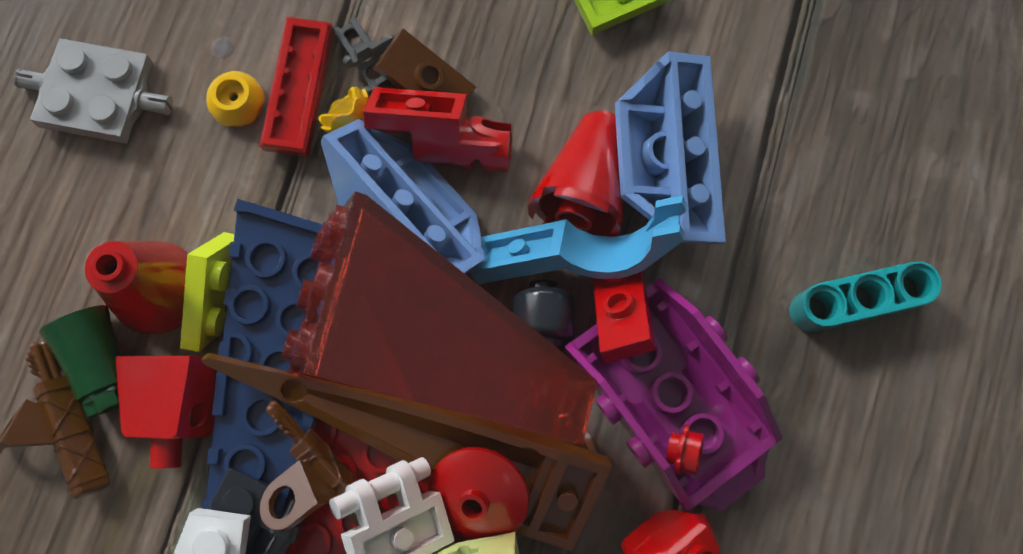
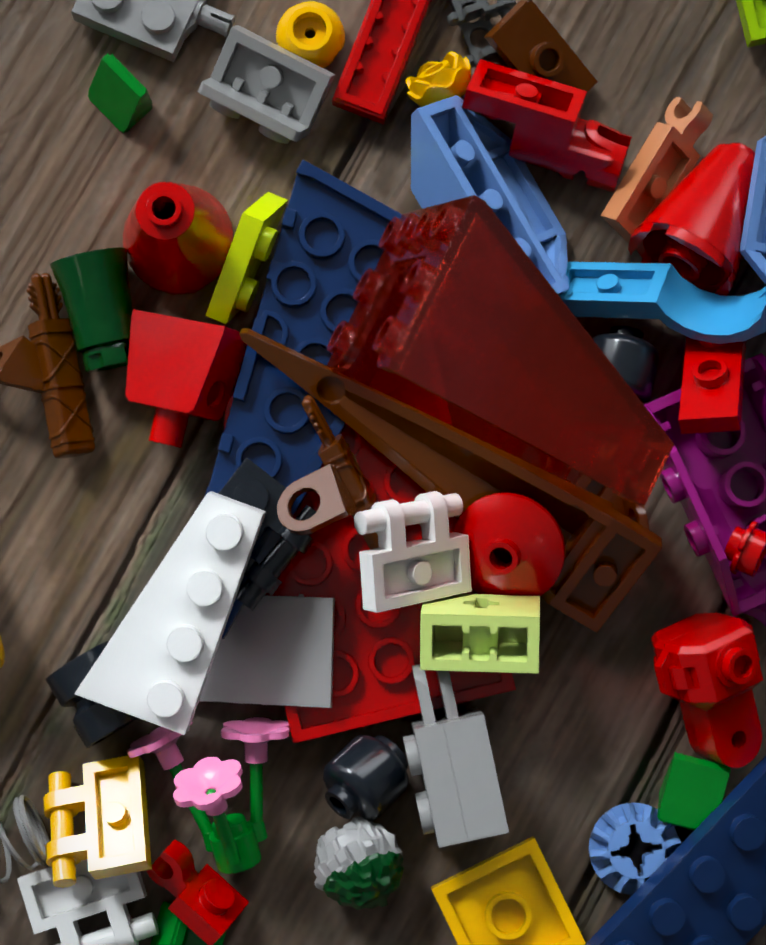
camera: 10 degrees right, 5 degrees up
(83, 178) = (119, 94): none -> green slope
(203, 146) = (266, 86): none -> light grey bracket
(539, 143) = (658, 166): none -> nougat plate

